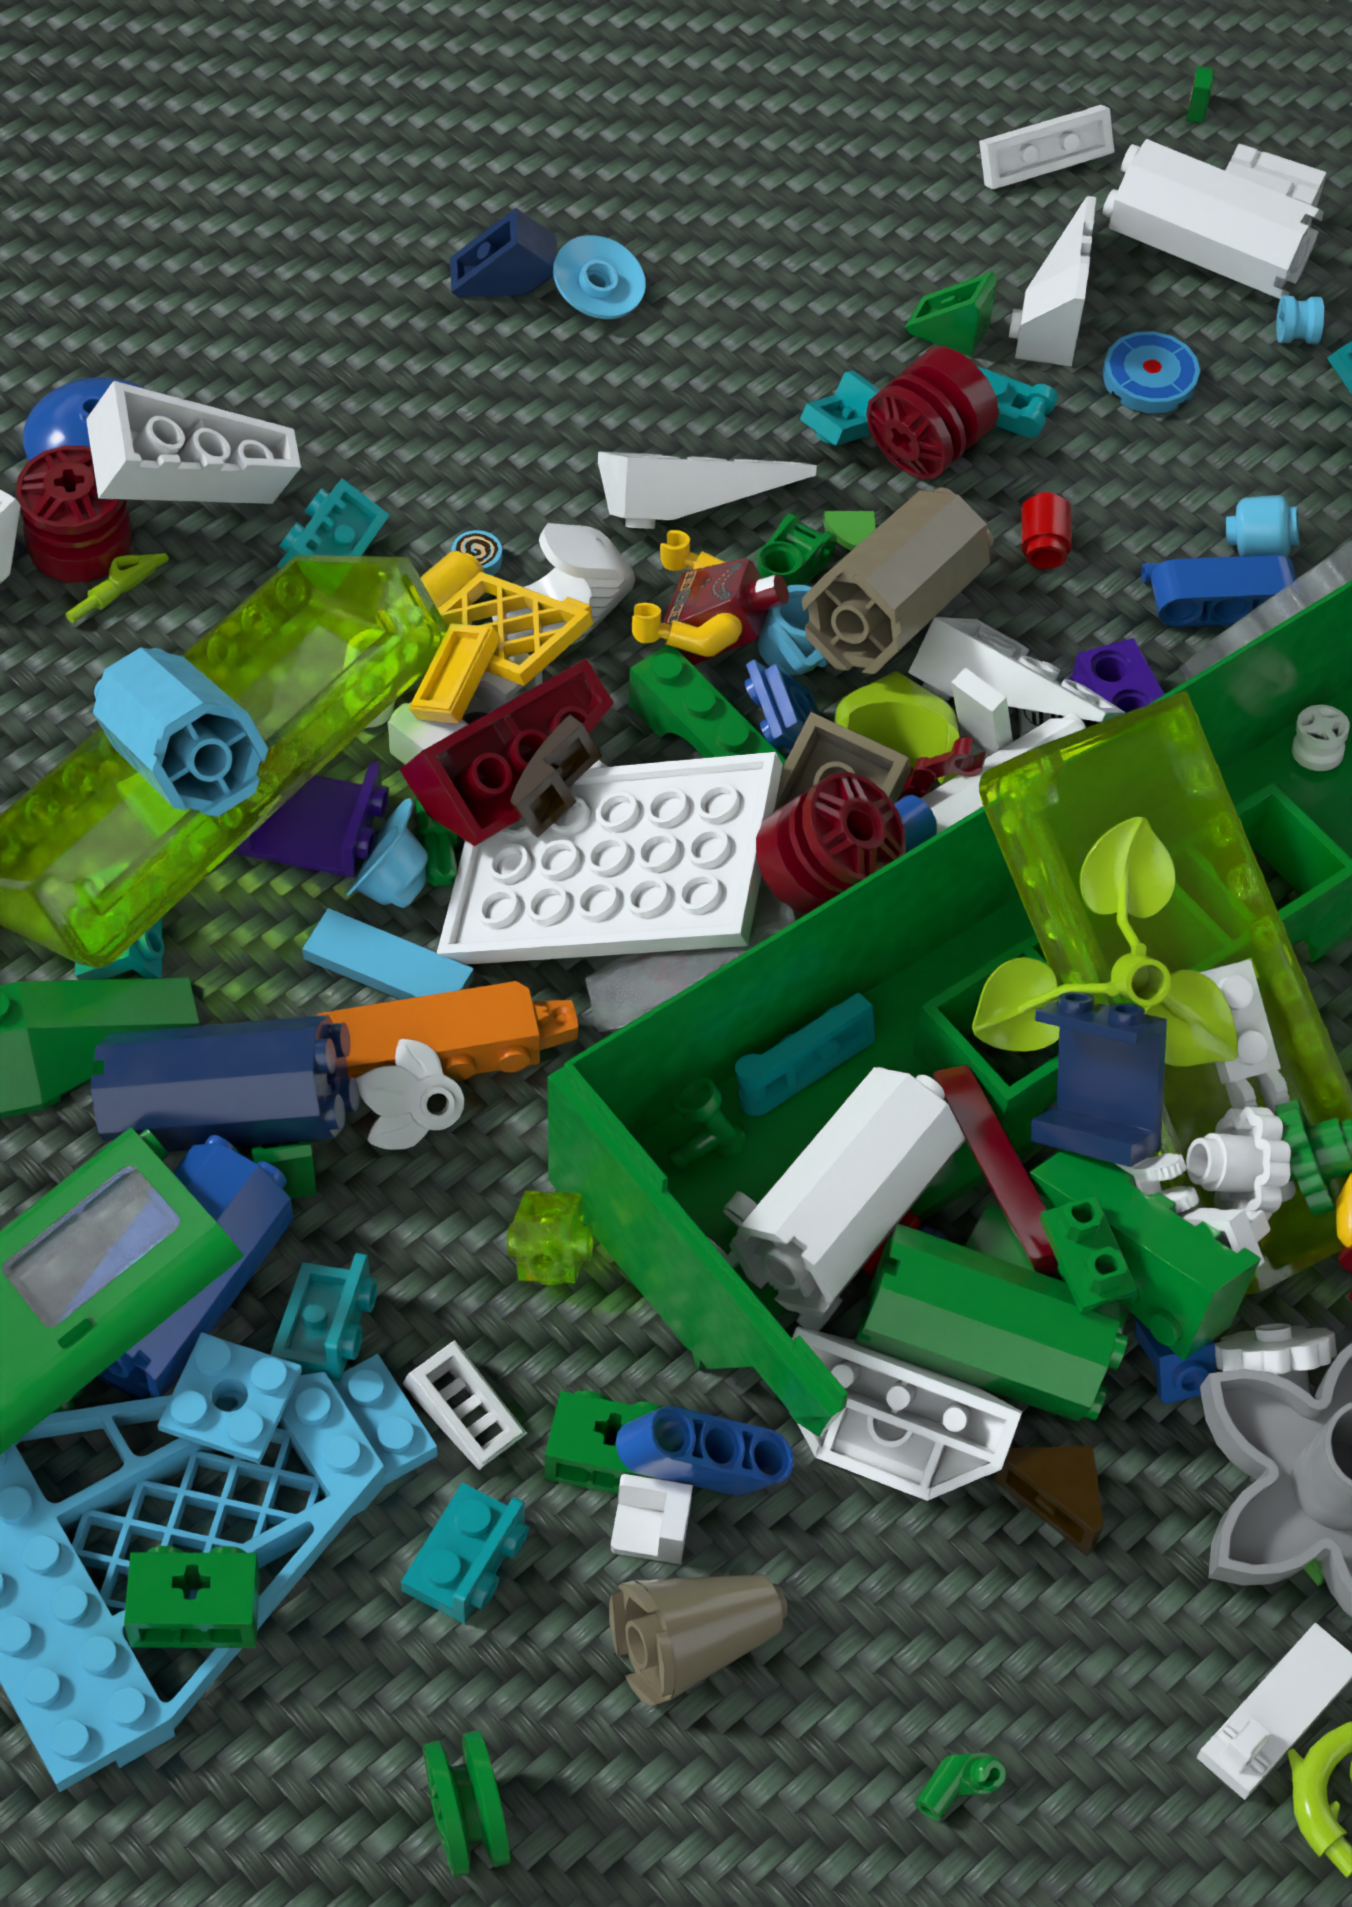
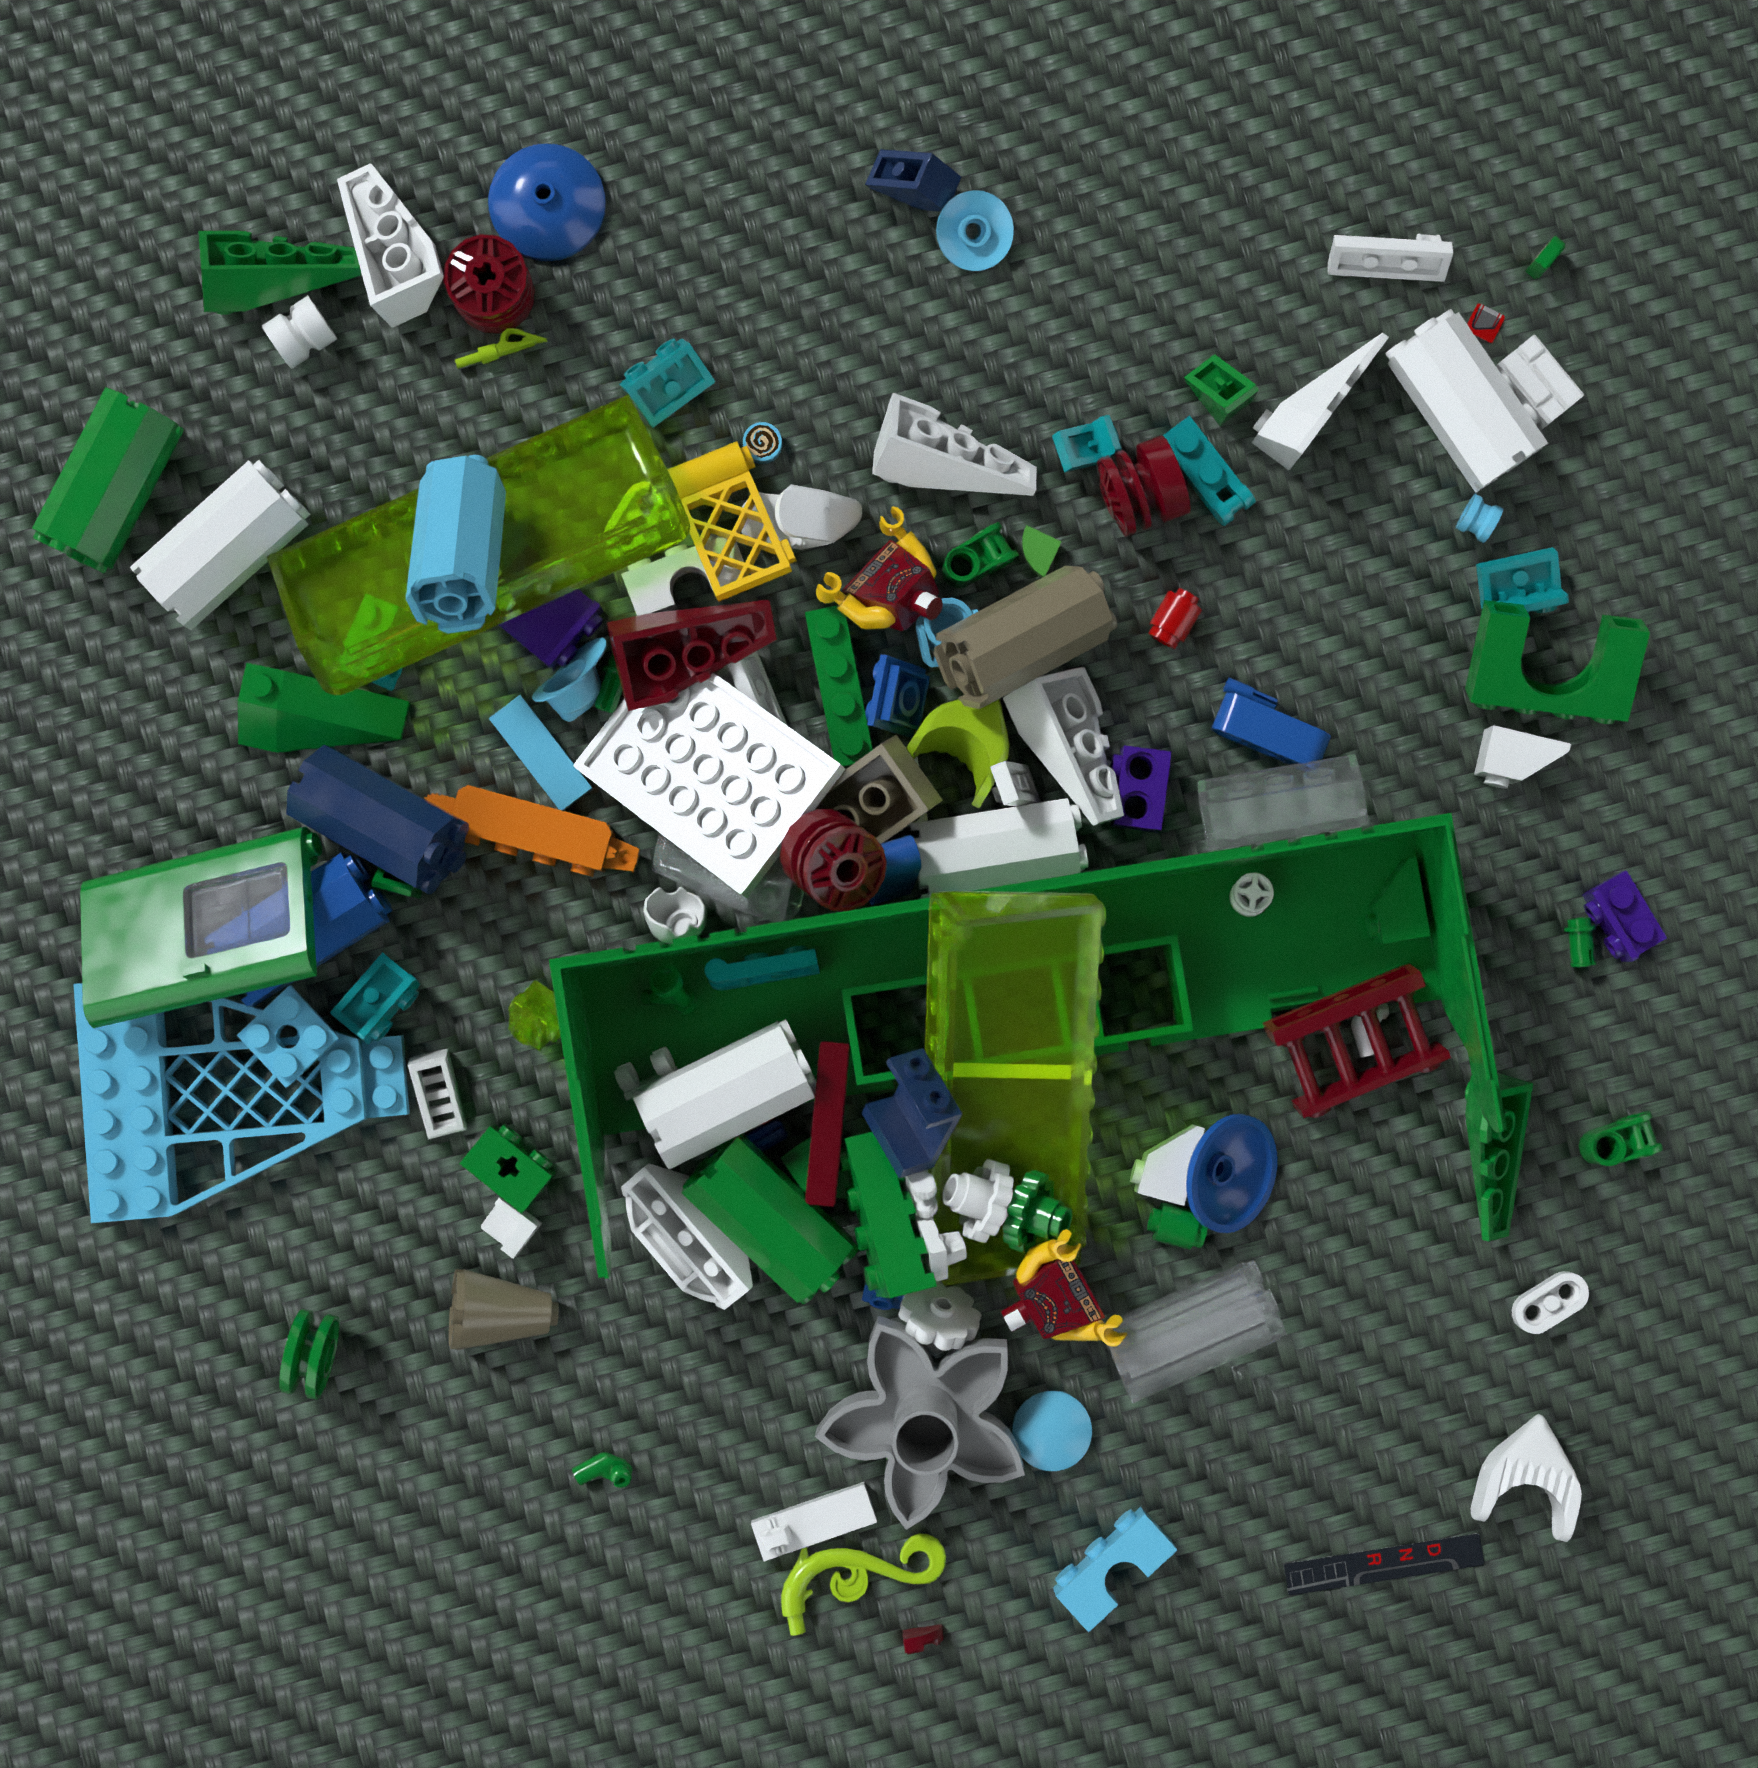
camera: 25 degrees right, 30 degrees up
(185, 450) = (573, 280): white wedge -> none
(218, 1617) = (186, 1157): green brick -> none
(402, 1096) = (502, 868): white plate -> none
(454, 673) = (678, 565): yellow tile -> none
(465, 1551) = (392, 1188): teal bracket -> none
(544, 784) = (691, 691): dark brown slope -> none
(704, 1451) = (538, 1204): blue beam -> none
(929, 769) = (975, 810): dark red piece -> none
(1058, 1488) = (762, 1330): dark brown slope -> none
(1087, 1253) = (838, 1222): green hips -> none
(1120, 875) = (989, 1002): lime plant -> none
(1151, 372) = (1341, 508): dark azure tile -> none
(1254, 1039) = (1034, 1112): white hinge -> none
(1263, 526) = (1330, 694): medium azure head -> none

